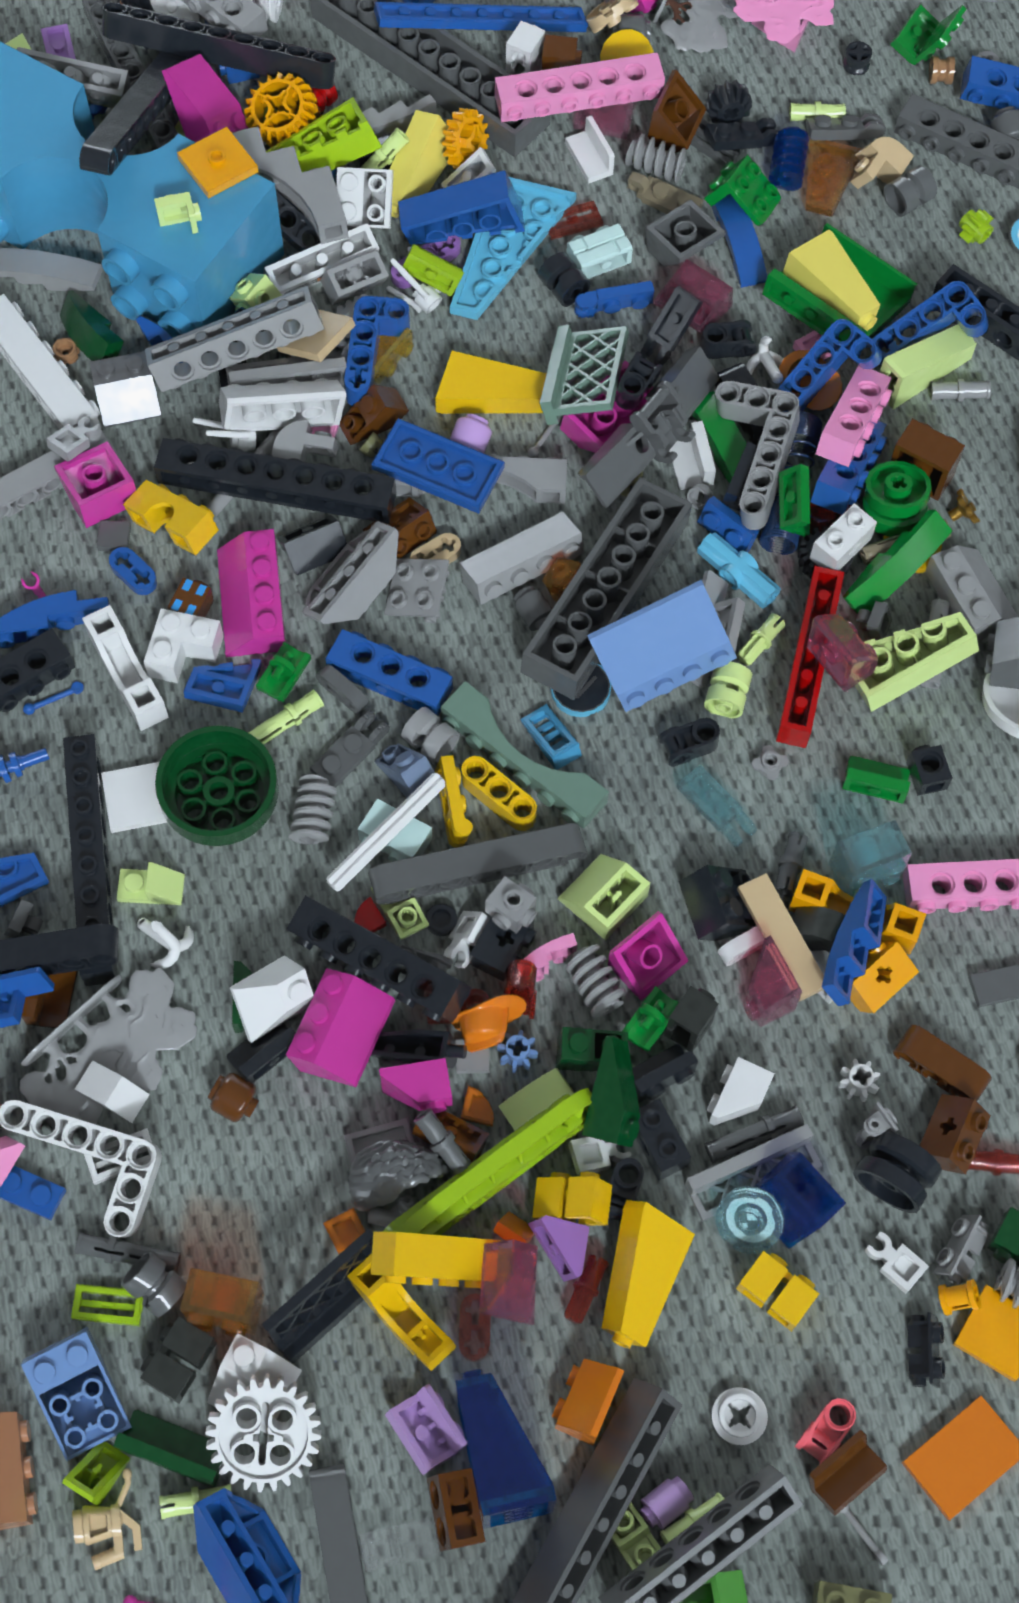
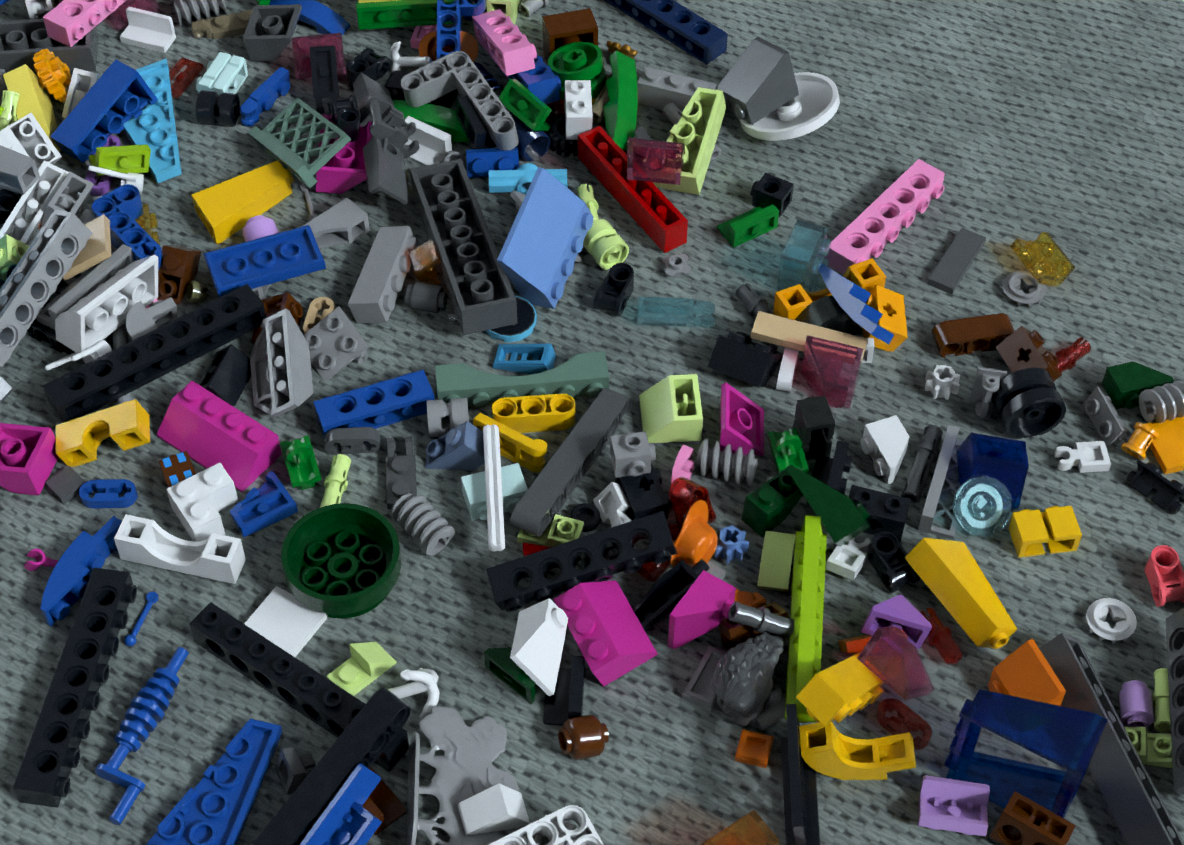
camera: 45 degrees left, 15 degrees down
(573, 1198) = (881, 575): yellow piece -> none

